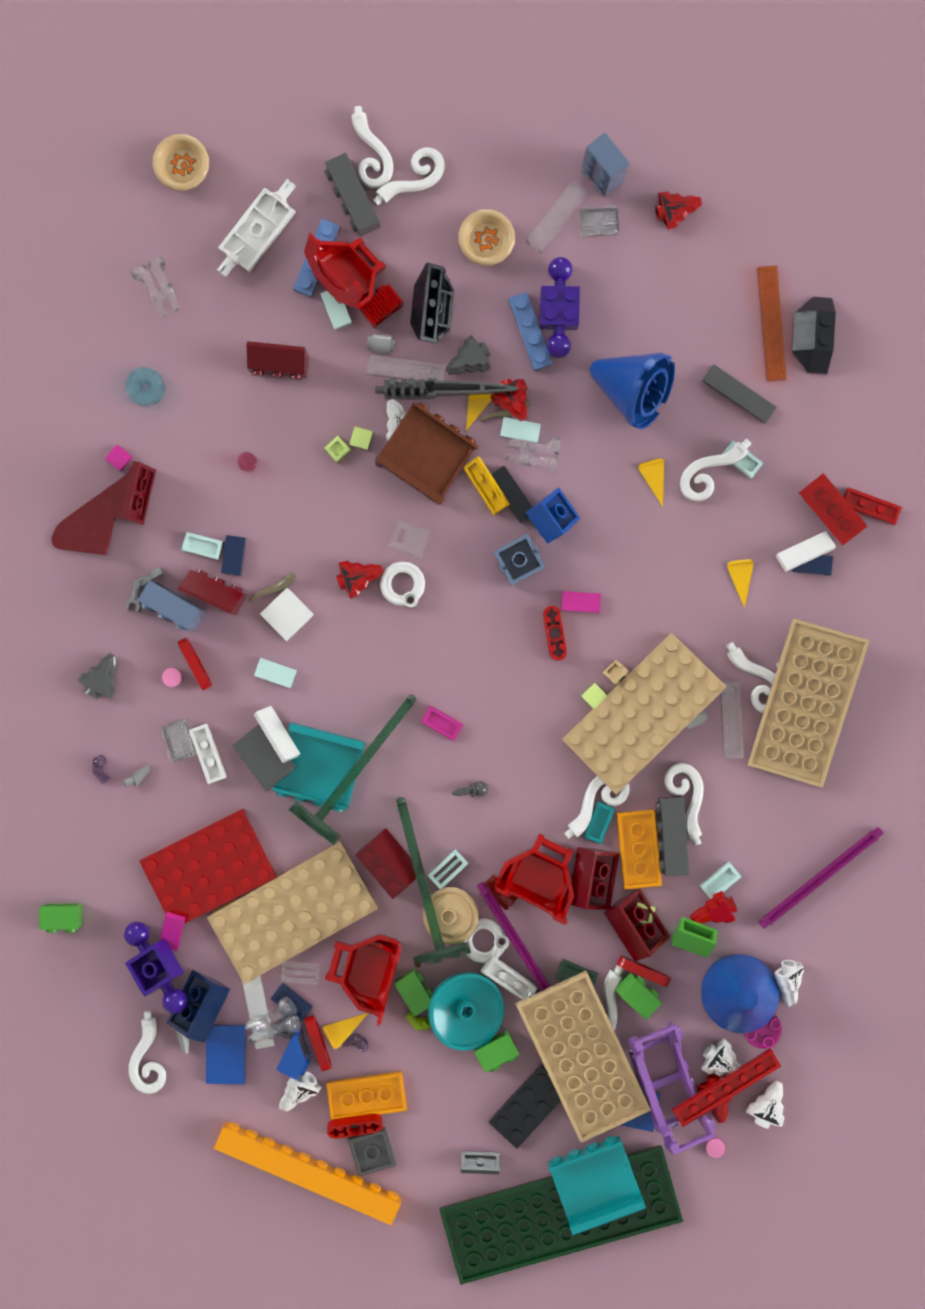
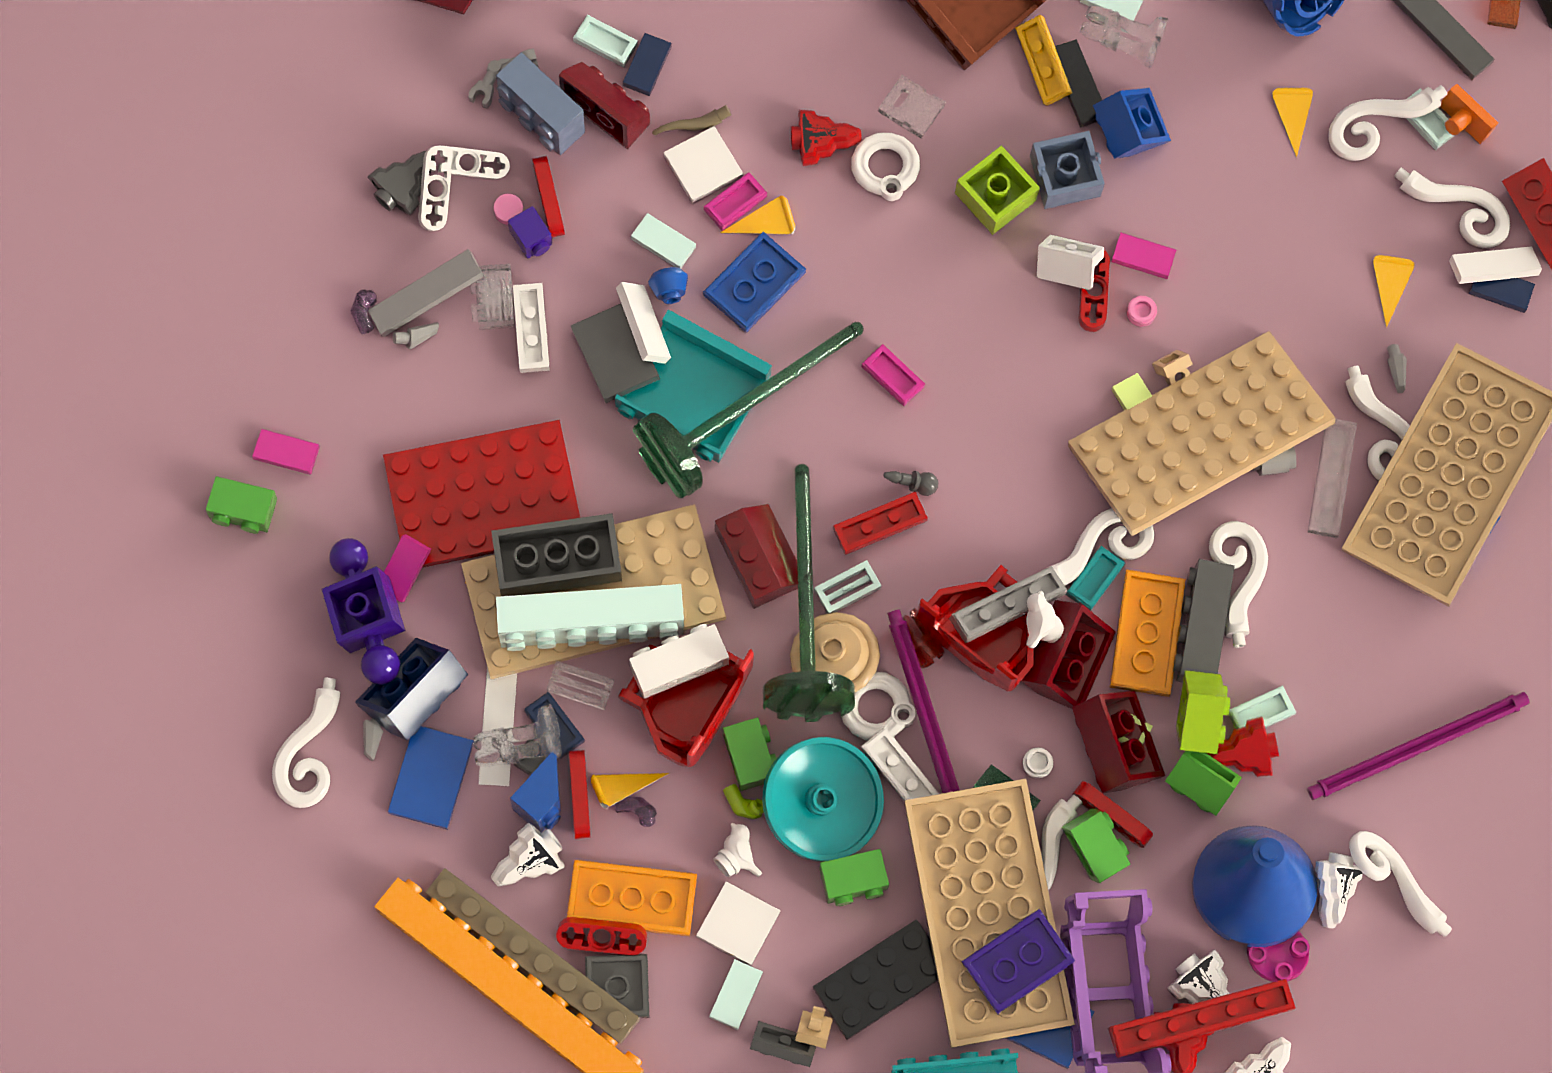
camera: 10 degrees right, 15 degrees down
(79, 873) = (286, 451): none -> dark pink tile
(127, 663) = (452, 167): none -> white beam
(135, 750) = (426, 293): none -> light grey tile
(190, 691) = (530, 233): none -> dark purple brick
(263, 905) = (557, 555): none -> dark grey brick
(286, 703) = (668, 284): none -> blue cone
(294, 940) = (590, 616): none -> light aqua brick
(313, 633) = (735, 201): none -> dark pink tile
(316, 1148) = (533, 956): none -> dark tan plate
(338, 639) = (771, 218): none -> yellow sticker
(339, 684) = (754, 282): none -> blue tile
(355, 954) = (678, 660): none -> white brick
(422, 1054) = (736, 852): none -> white animal
(434, 1095) = (738, 923): none -> white tile
(444, 1138) = (736, 994): none -> light aqua tile
(457, 823) = (880, 523): none -> red plate
(477, 585) = (997, 190): none -> lime brick
(495, 1149) = (814, 1027): none -> tan tile
(534, 620) = (1068, 261): none -> white panel
(550, 862) = (1006, 604): none -> light grey tile
(573, 870) = (1042, 621): none -> white animal
(588, 639) = (1141, 311): none -> bright pink tile
(590, 949) = (1037, 762): none -> white plate
(608, 1085) = (1018, 961): none -> dark purple tile
(685, 900) = (1201, 712): none -> lime brick
(751, 510) = (1427, 191): none -> white plant
(757, 634) = (1397, 365): none -> light grey bar
(766, 452) = (1467, 115): none -> orange tile
(843, 980) = (1383, 860): none -> white plant

